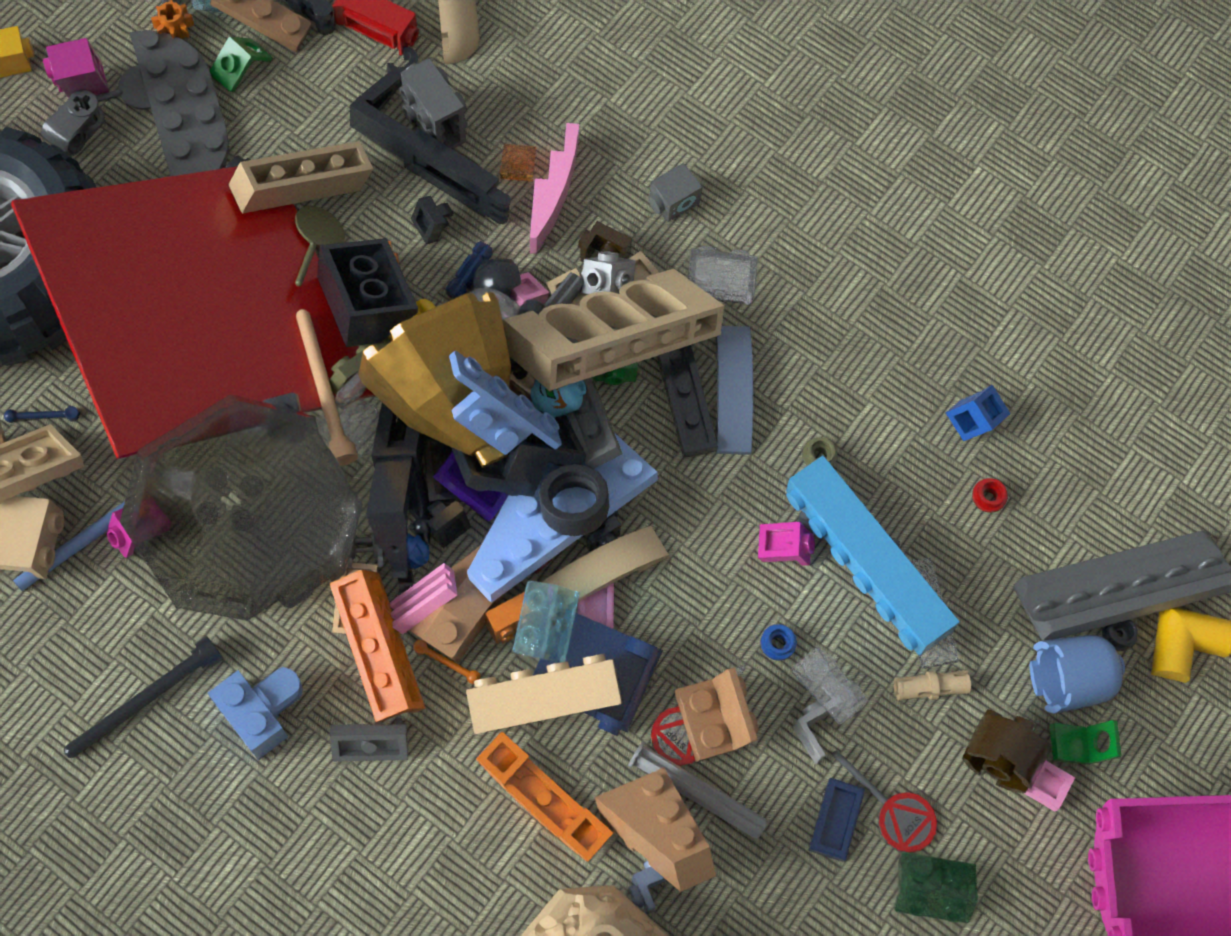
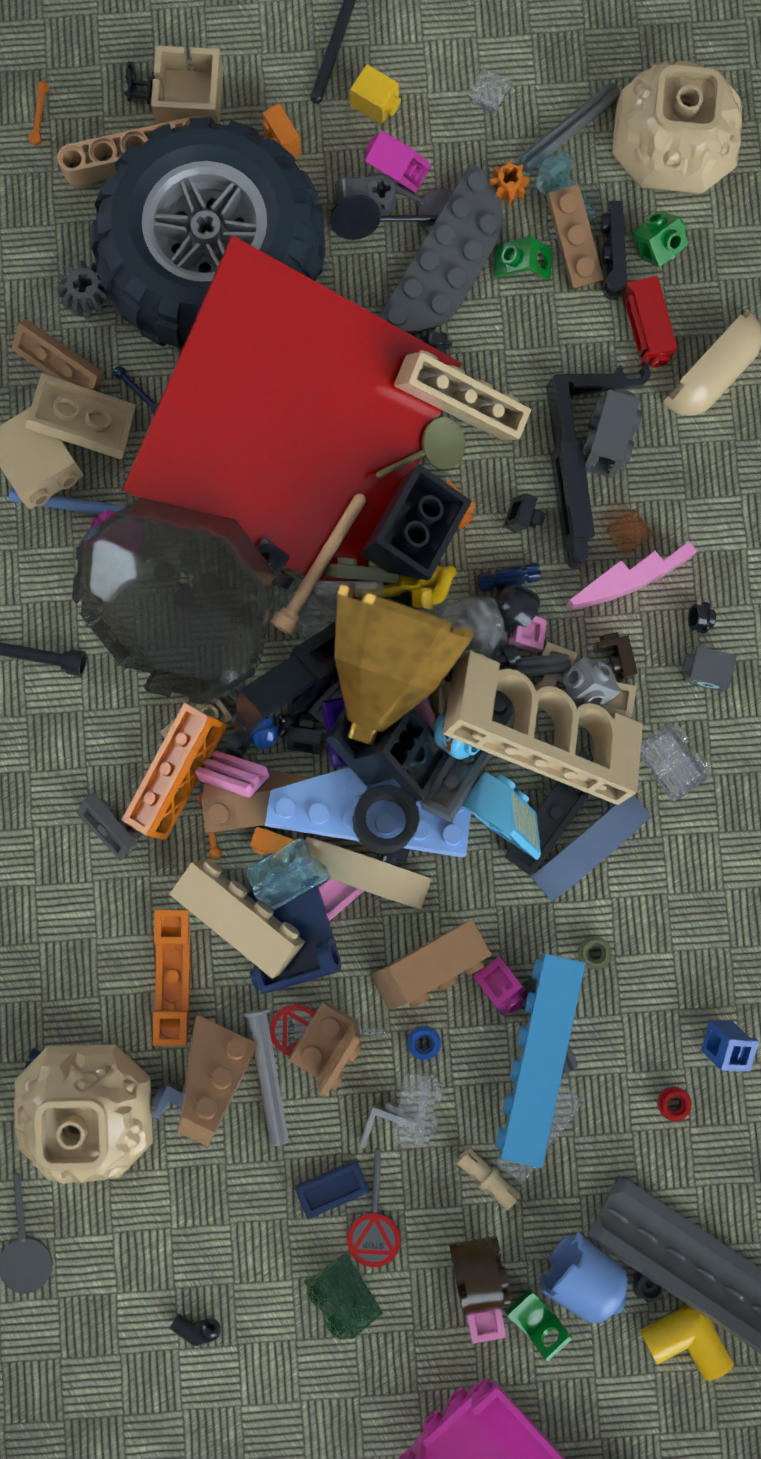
camera: 55 degrees right, 15 degrees up
(85, 135) = (360, 216): none -> black piece
(255, 709) = (60, 731): medium blue brick -> none
(496, 411) = (388, 717): medium blue bracket -> none
(631, 167) = (701, 617): none -> black plate
(650, 420) = (505, 812): none -> medium azure slope
(721, 582) = (432, 966): none -> medium nougat wedge

